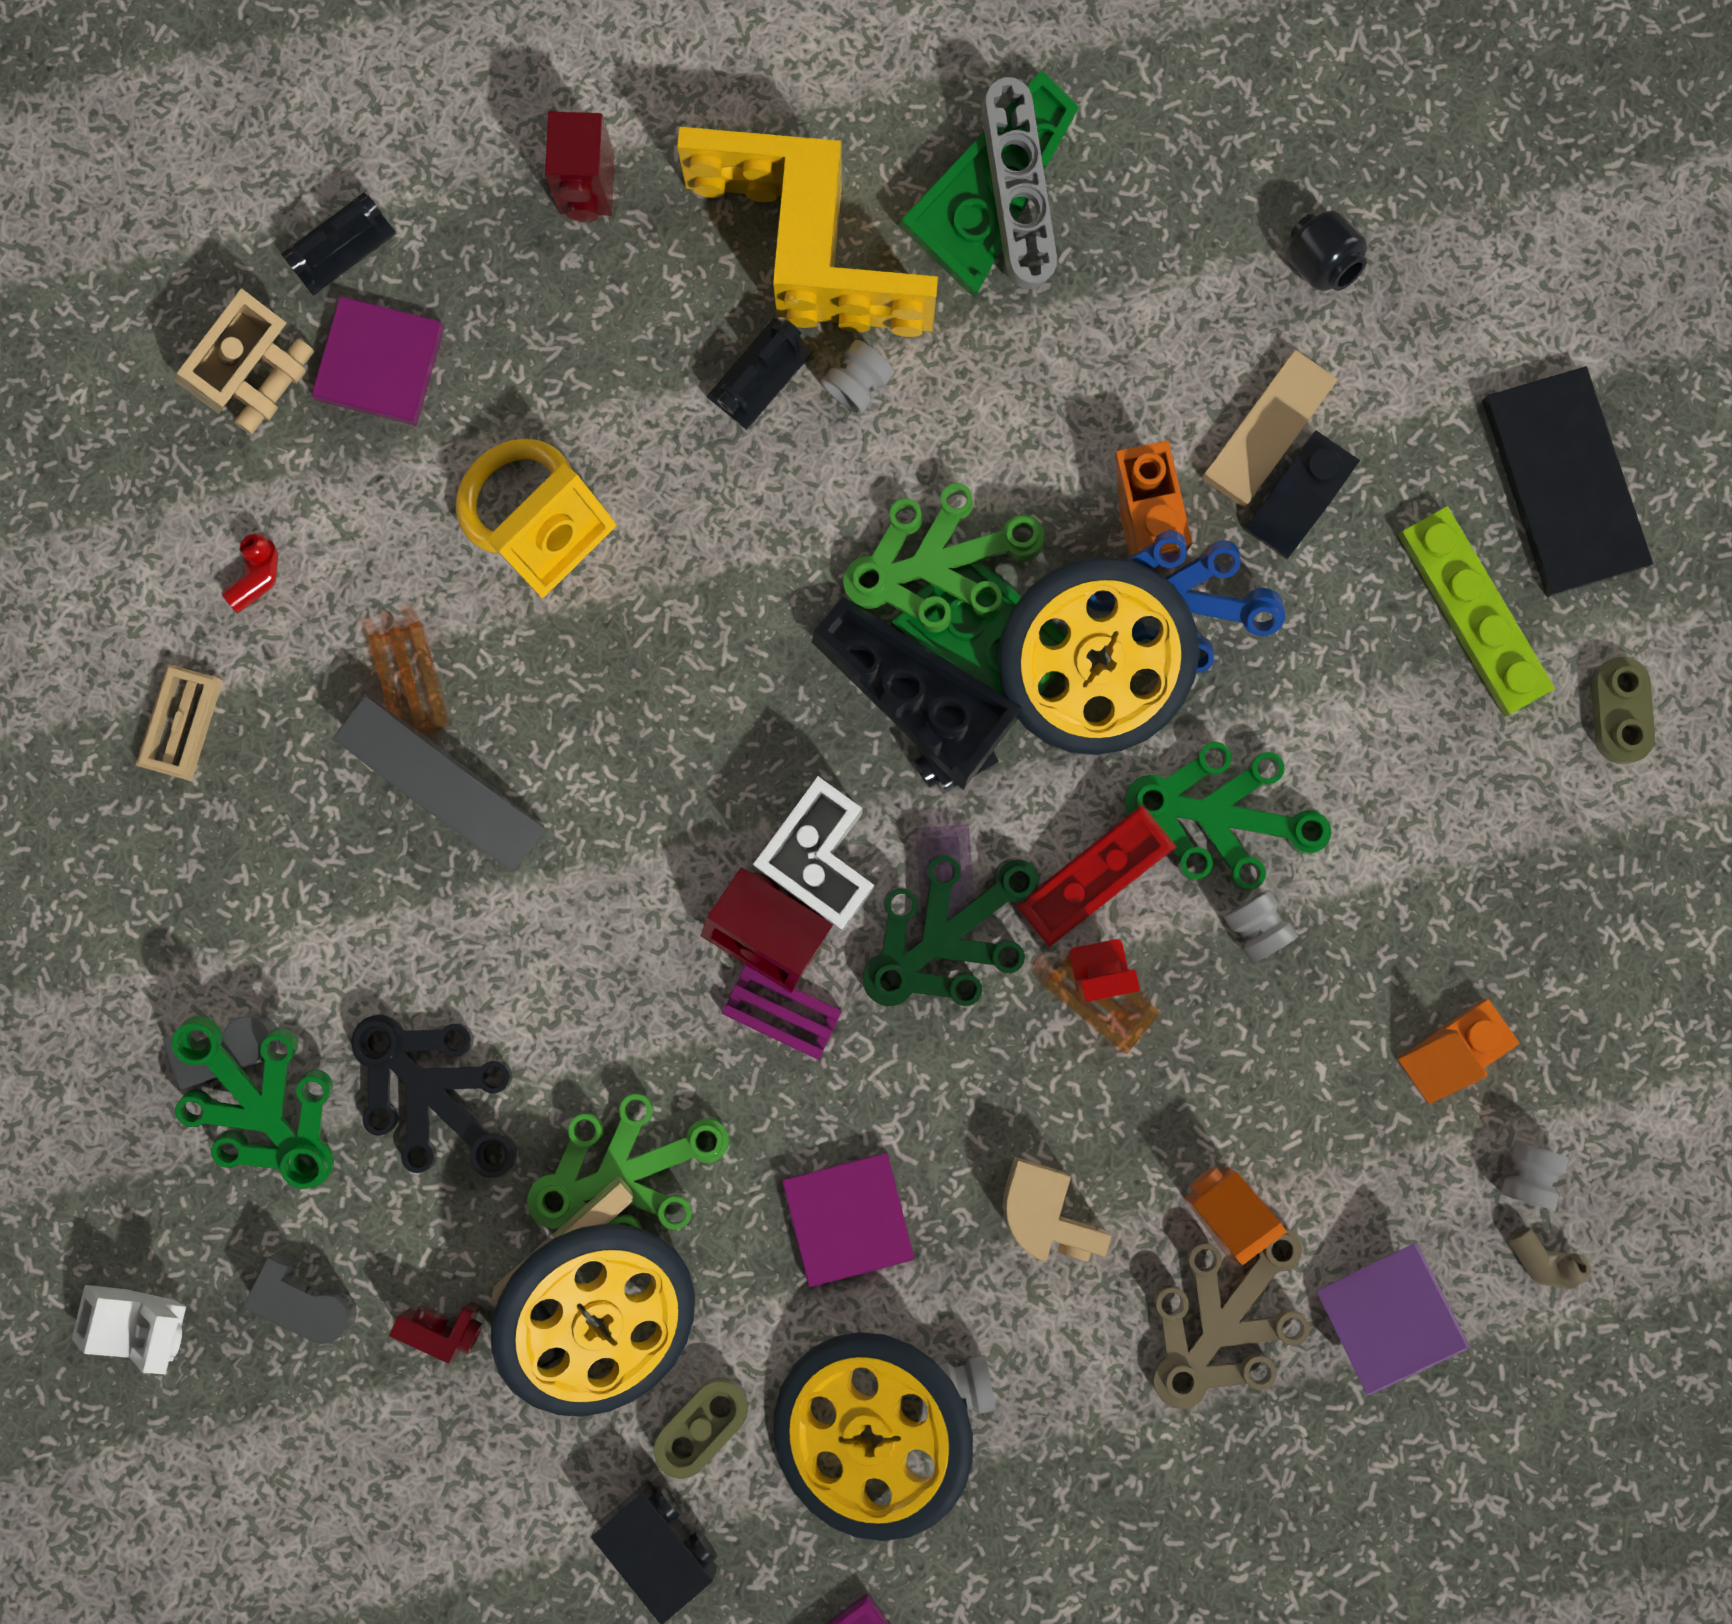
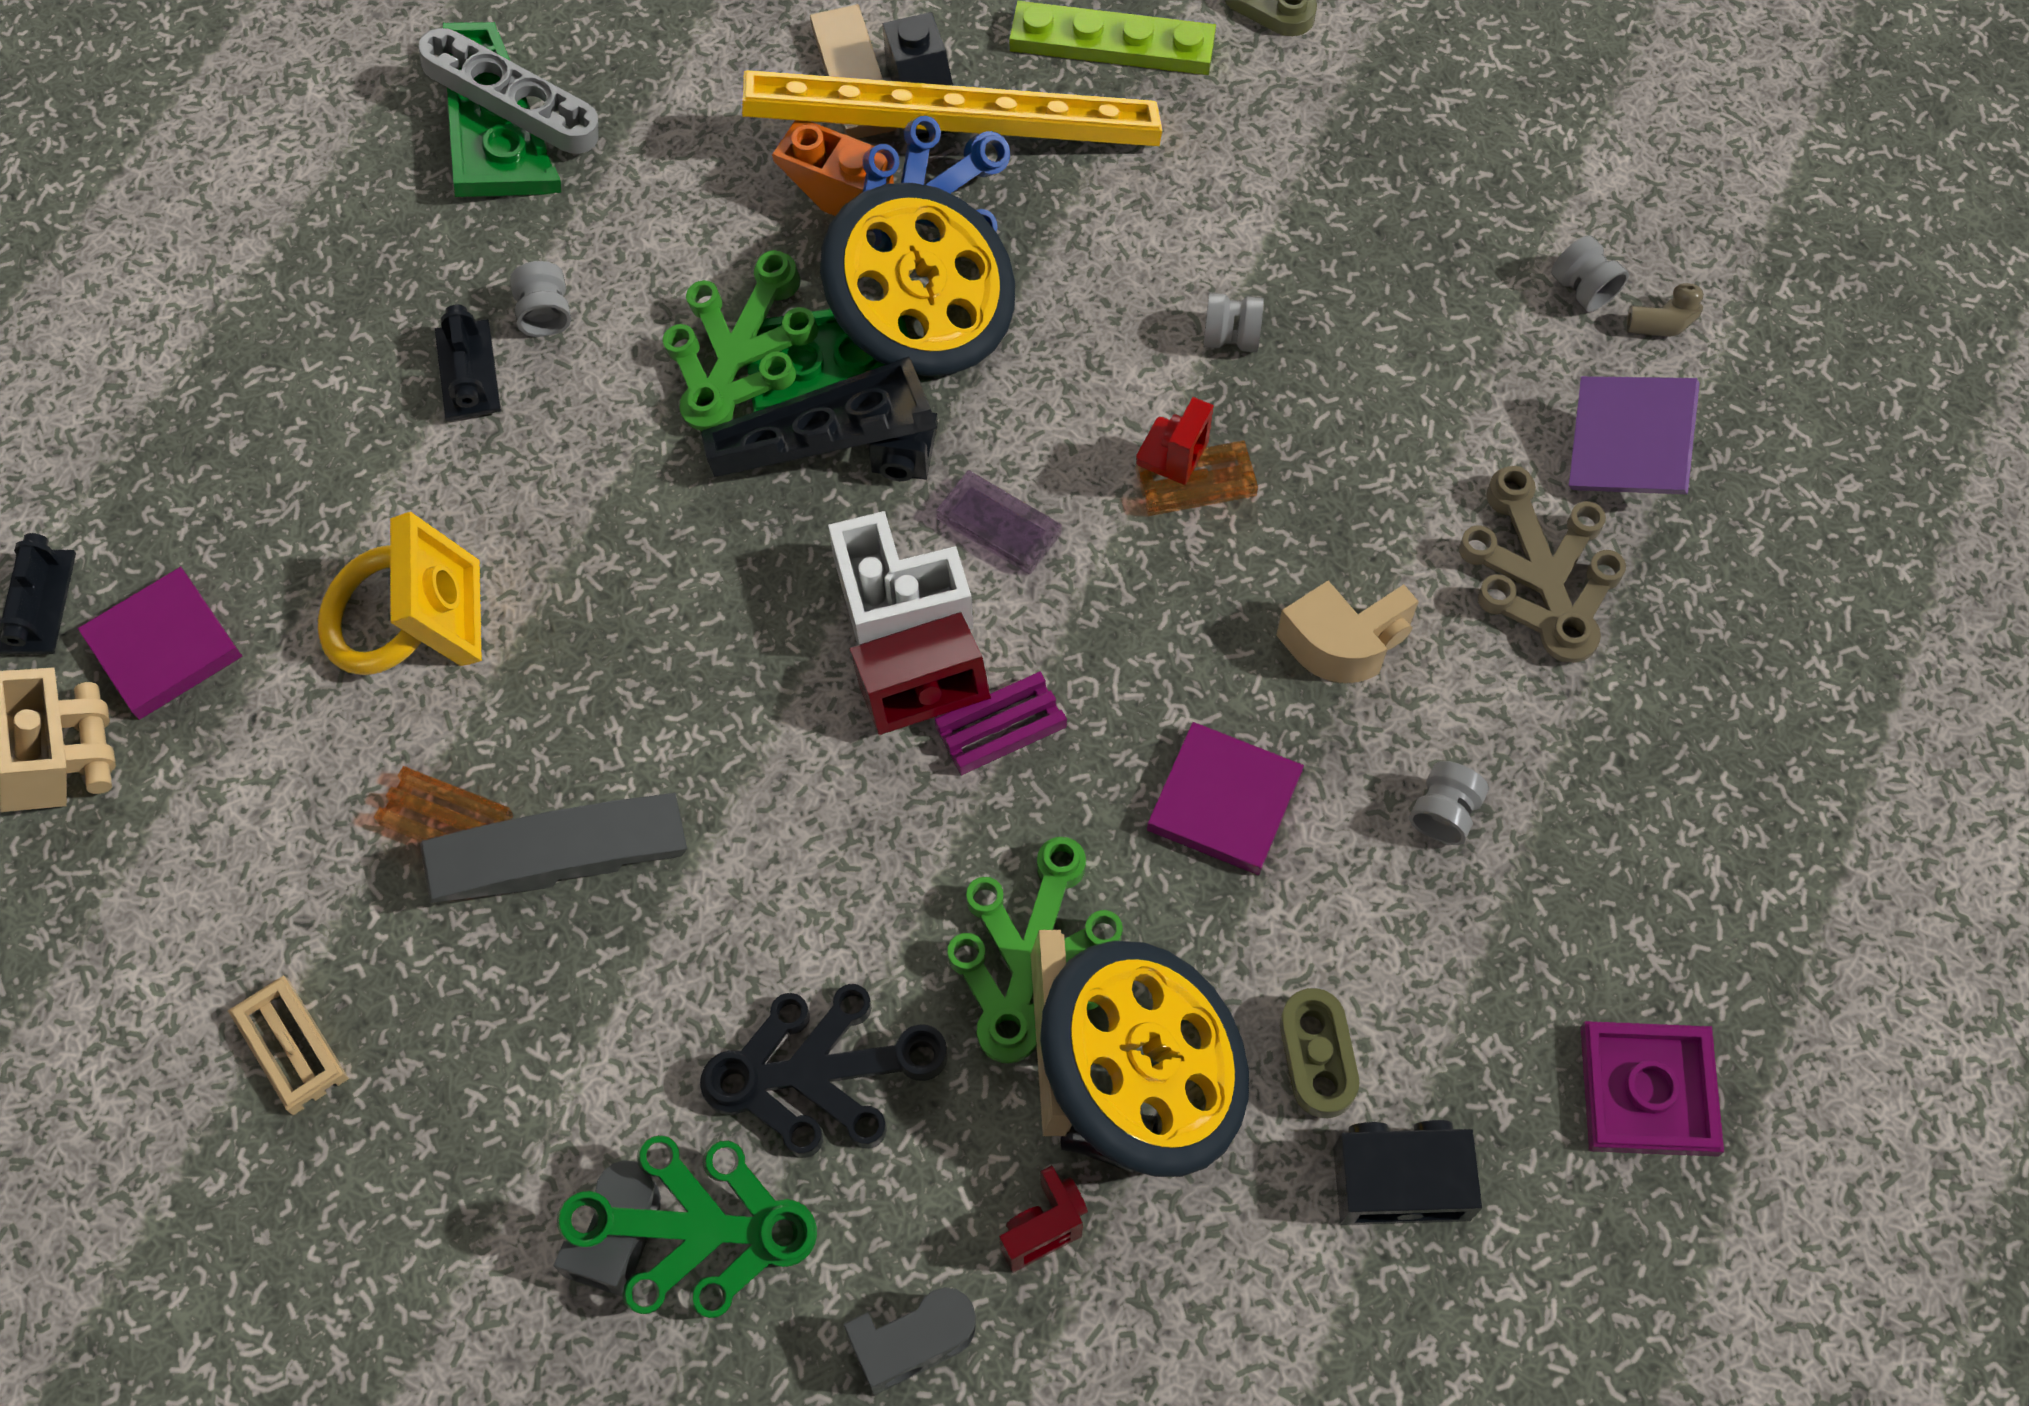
camera: 50 degrees left, 20 degrees down
(259, 572) = (230, 871): red arm -> none
(580, 164) = (173, 358): dark red brick -> none
(810, 187) = (365, 218): yellow bracket -> none
(843, 1501) = (1479, 828): wedge -> none
(943, 936) = (1043, 551): dark green plant -> none
(1096, 875) = (1092, 406): red tile -> none
(1217, 814) = (1121, 296): green plant -> none
(1233, 1214) = (1457, 486): orange slope -> none
(1281, 550) = (953, 107): none -> yellow tile
(1458, 1052) = (1448, 265): orange slope -> none

